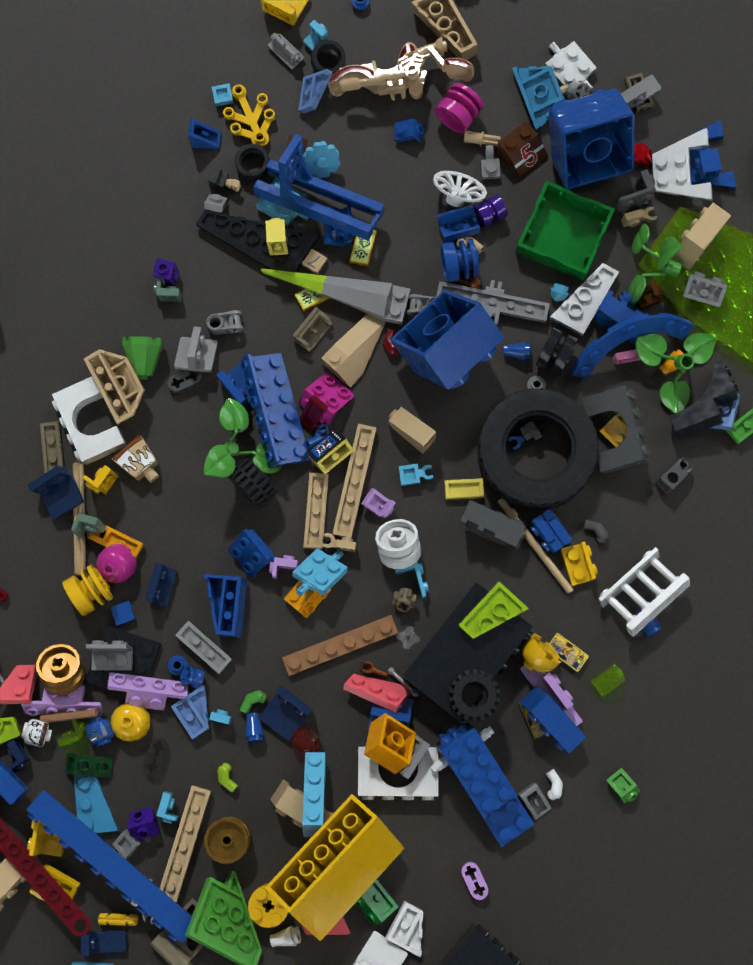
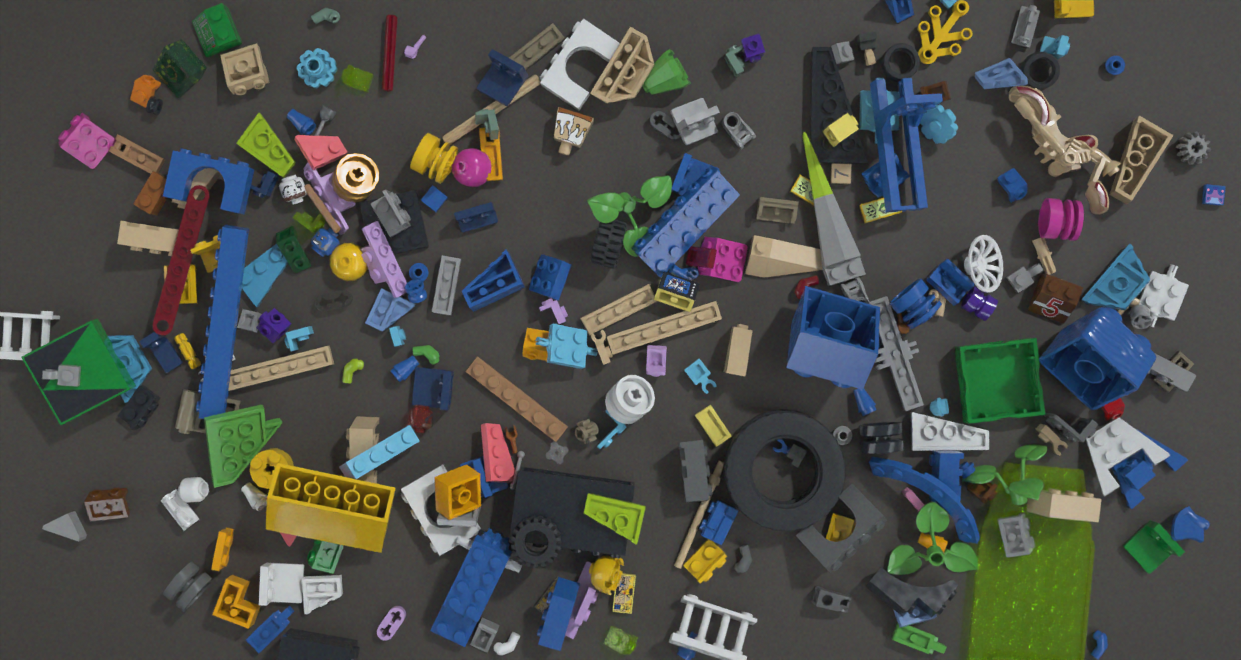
camera: 55 degrees right, 10 degrees up
(103, 480) = (536, 111): yellow bracket -> none
(216, 834) = (290, 404): pearl gold wheel -> none

